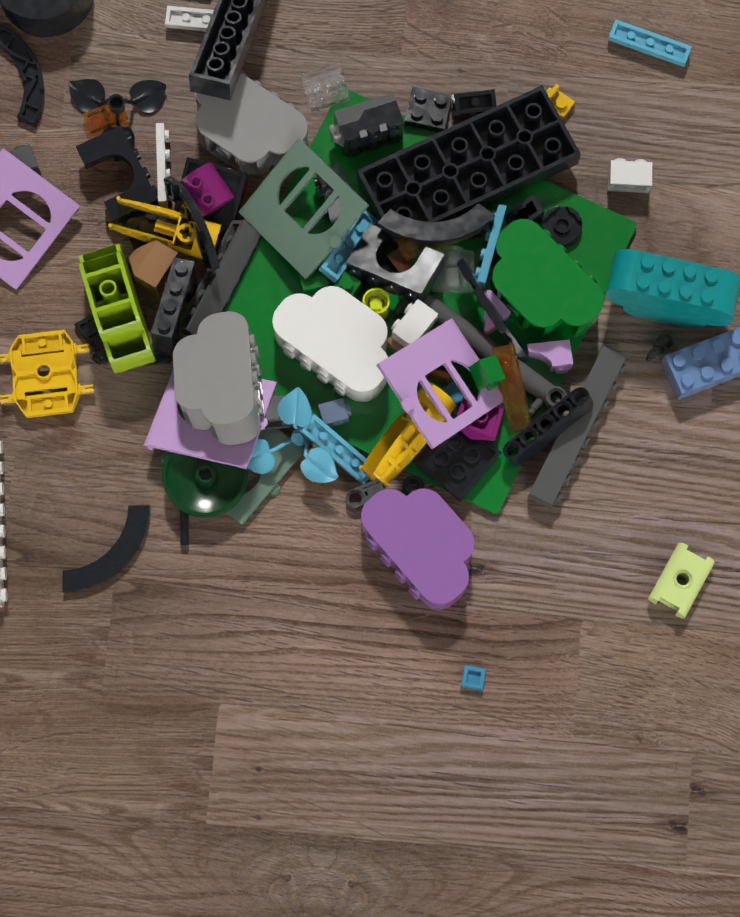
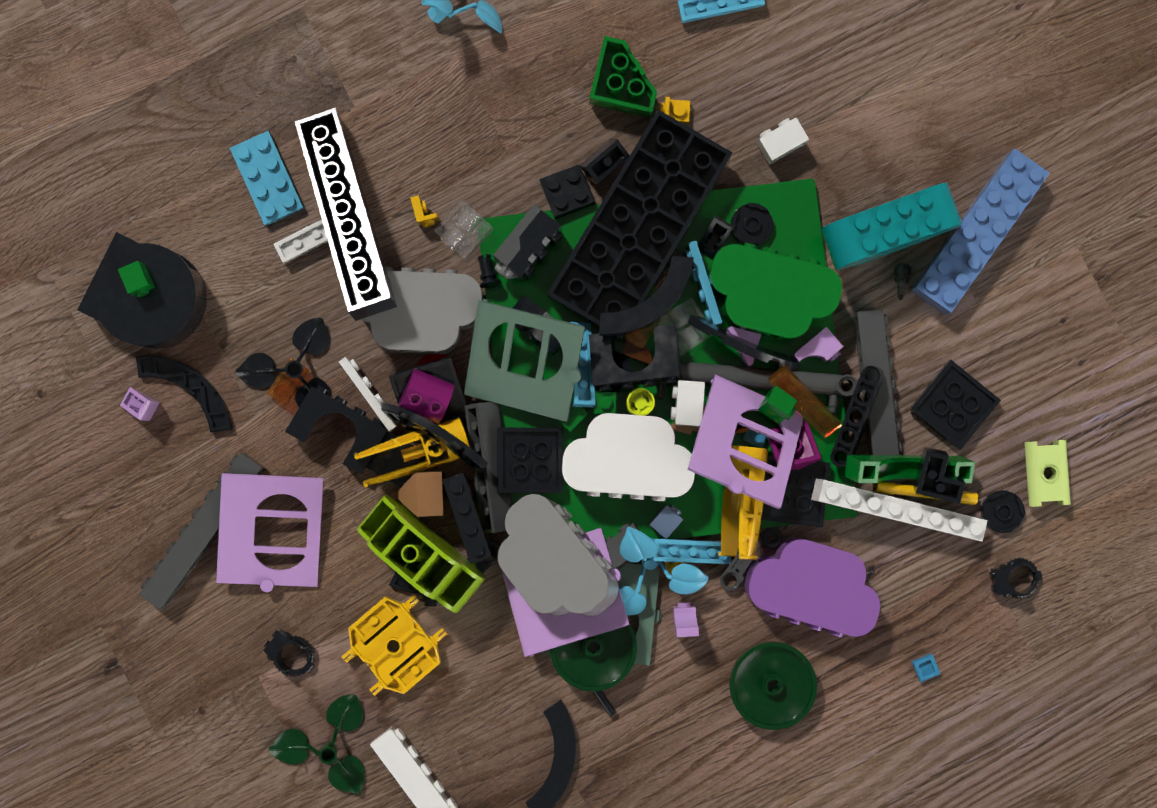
camera: 30 degrees left, 10 degrees up
(254, 292) = (529, 460): none -> black plate
(295, 504) = (685, 620): none -> lavender arch
(300, 53) = (419, 210): none -> yellow bracket
(320, 133) = (488, 275): none -> black pin
(333, 604) = (773, 685): none -> dark green dish
(527, 50) = (621, 81): none -> green brick
(534, 526) = (899, 509): none -> white brick
(564, 494) = (887, 467): none -> green arch
(576, 512) = (932, 478): none -> black brick
(586, 639) = (1001, 575): none -> black piece
(593, 551) = (892, 488): none -> yellow piece
(623, 589) = (1003, 511): none -> black tile
(638, 475) = (955, 404): none -> black plate

